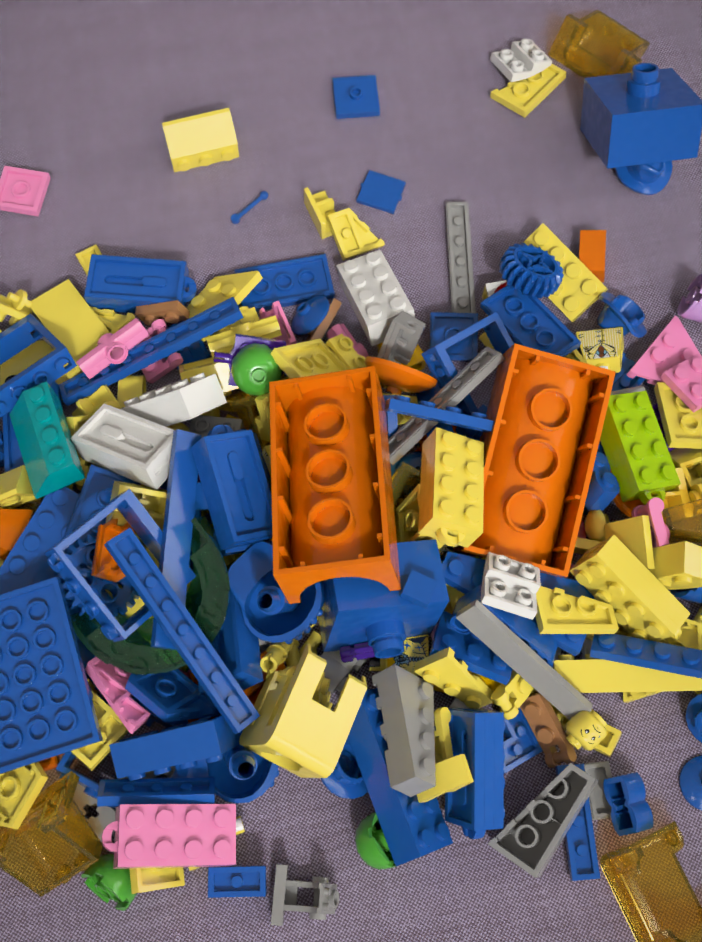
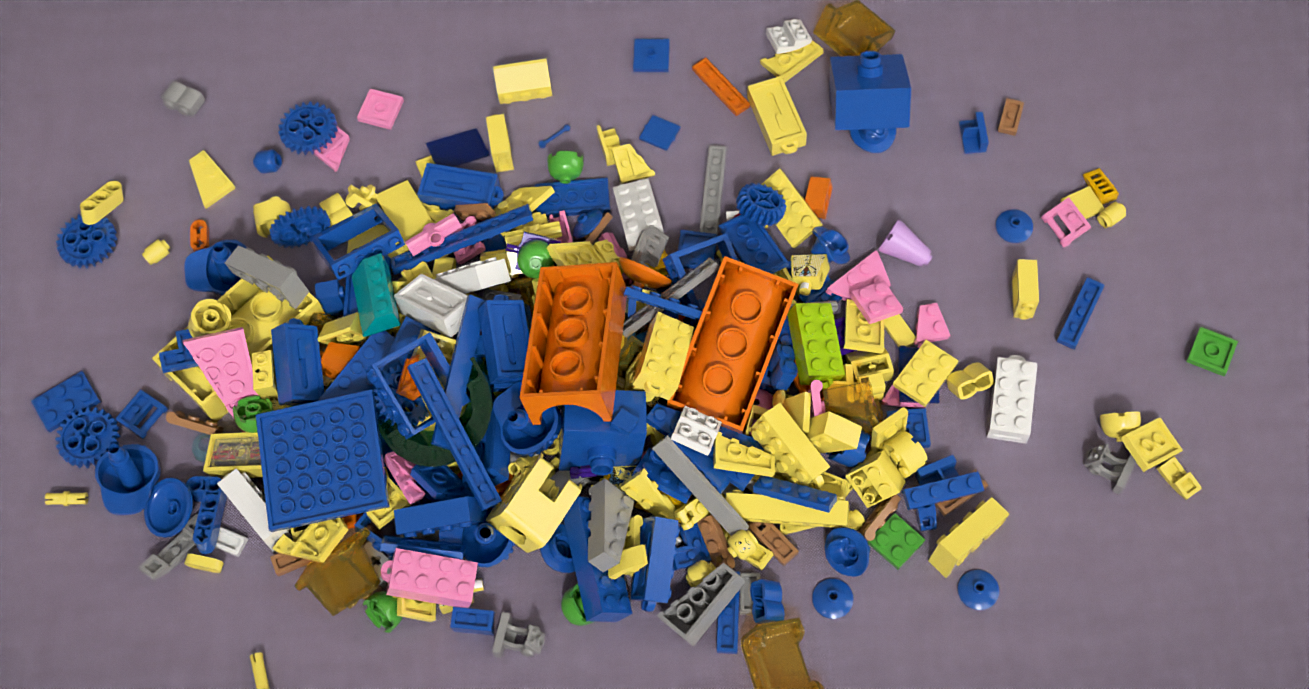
camera: 15 degrees right, 5 degrees down
(129, 233) = (458, 149): none -> clear blue piece
(182, 220) = (499, 143): none -> light yellow window
(271, 243) = (565, 166): none -> bright green cylinder
(447, 128) = (721, 86): none -> orange tile
(525, 158) = (777, 116): none -> light yellow piece
(534, 775) = (698, 571): none -> light yellow head
(621, 716) = (774, 541): none -> medium nougat plate

